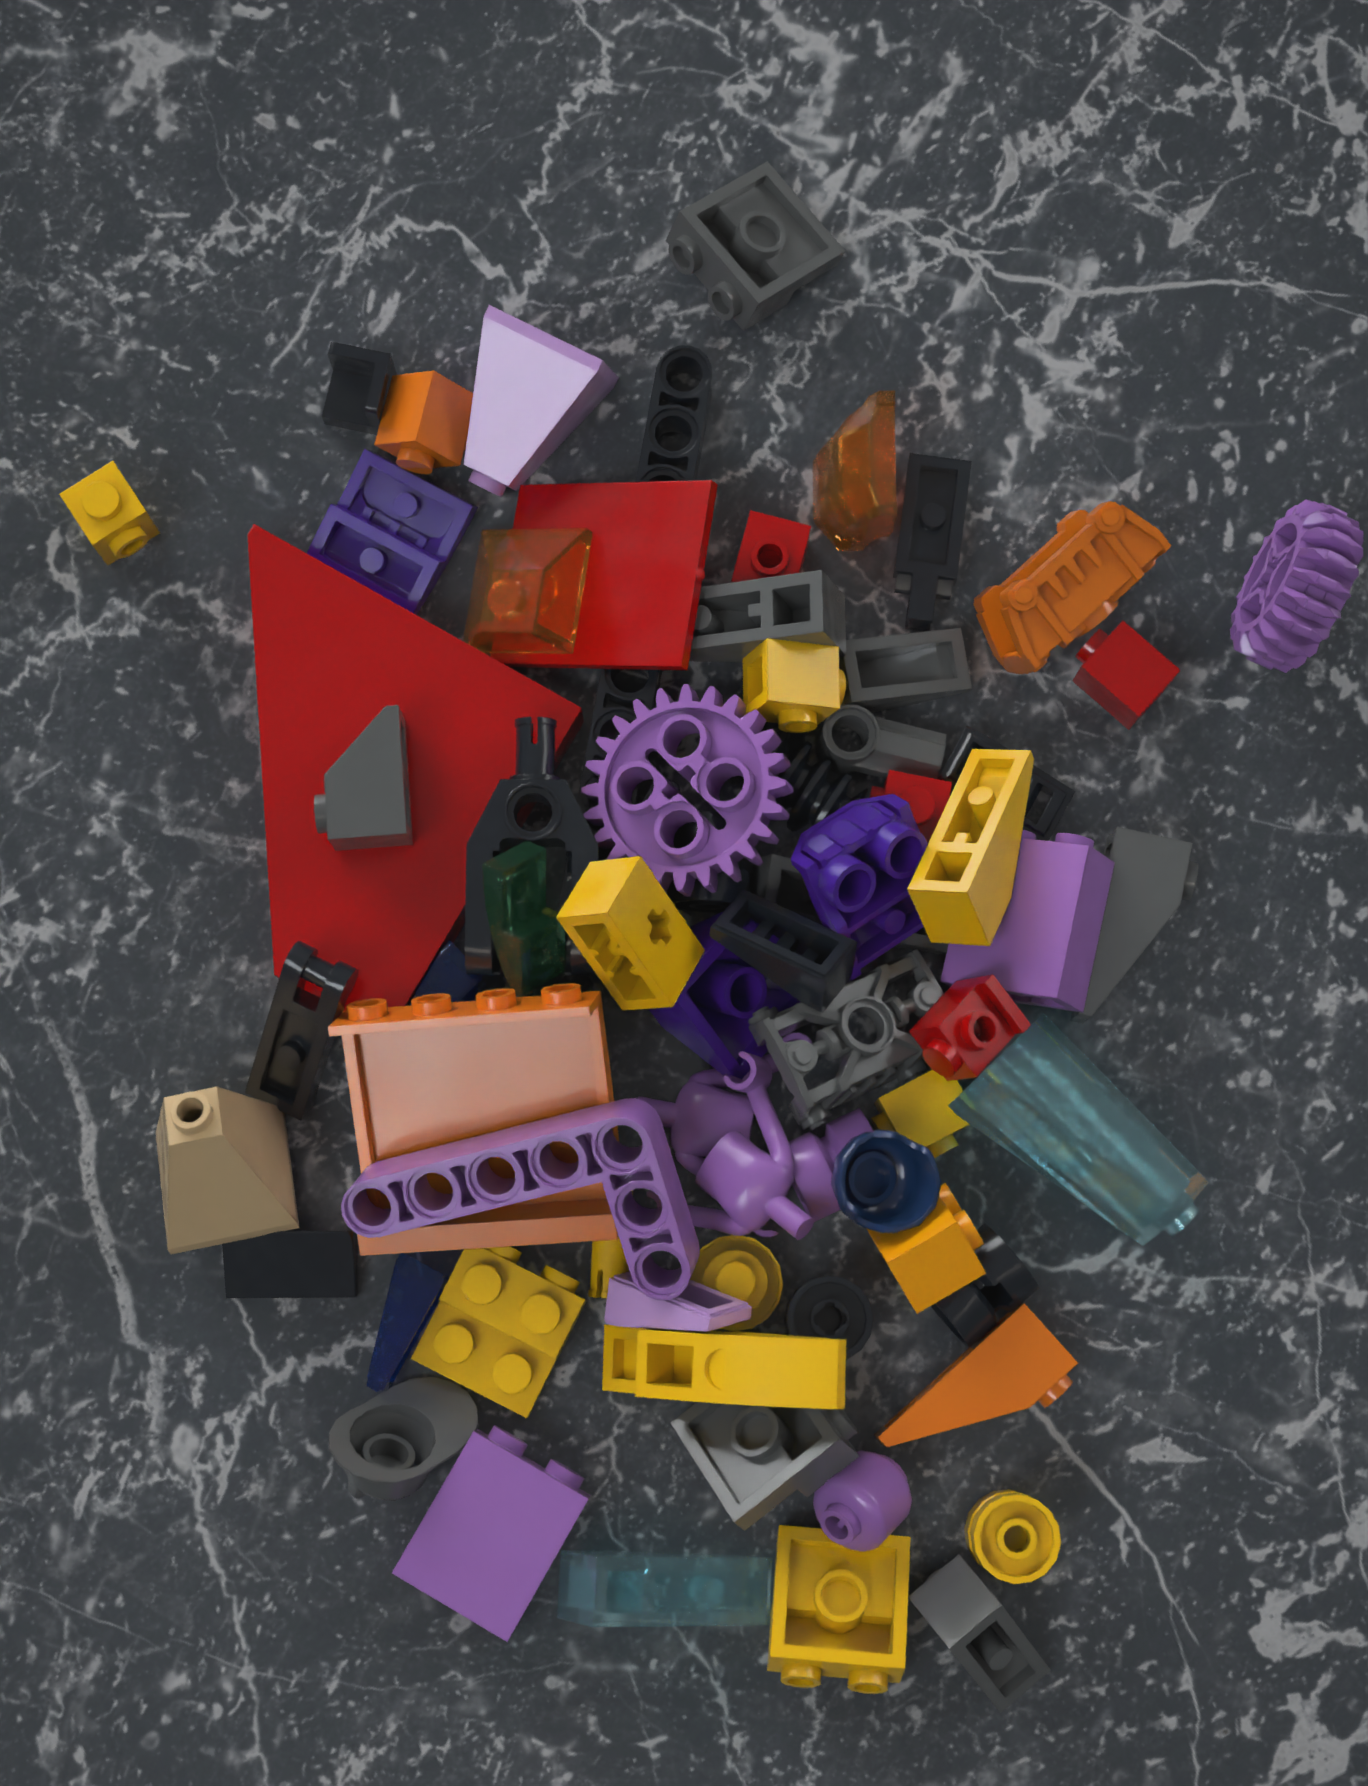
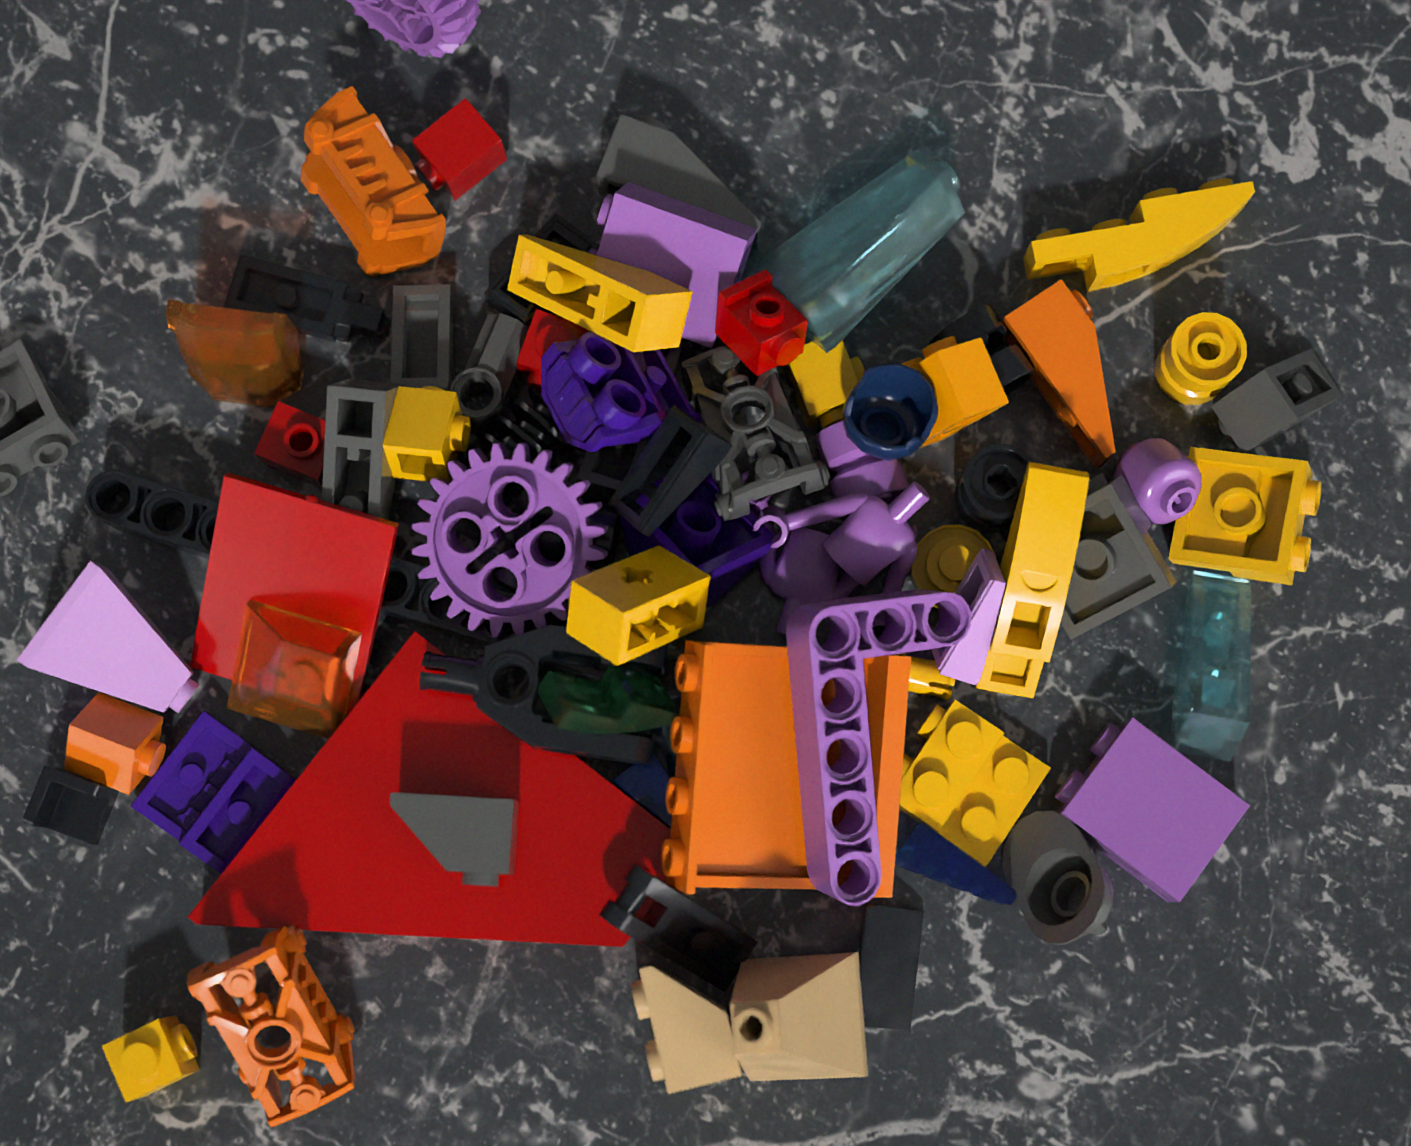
camera: 80 degrees left, 0 degrees up
(171, 653) = (299, 1008): none -> orange piece
(196, 1047) = (689, 1030): none -> tan slope
(1158, 1479) = (1159, 234): none -> yellow slope

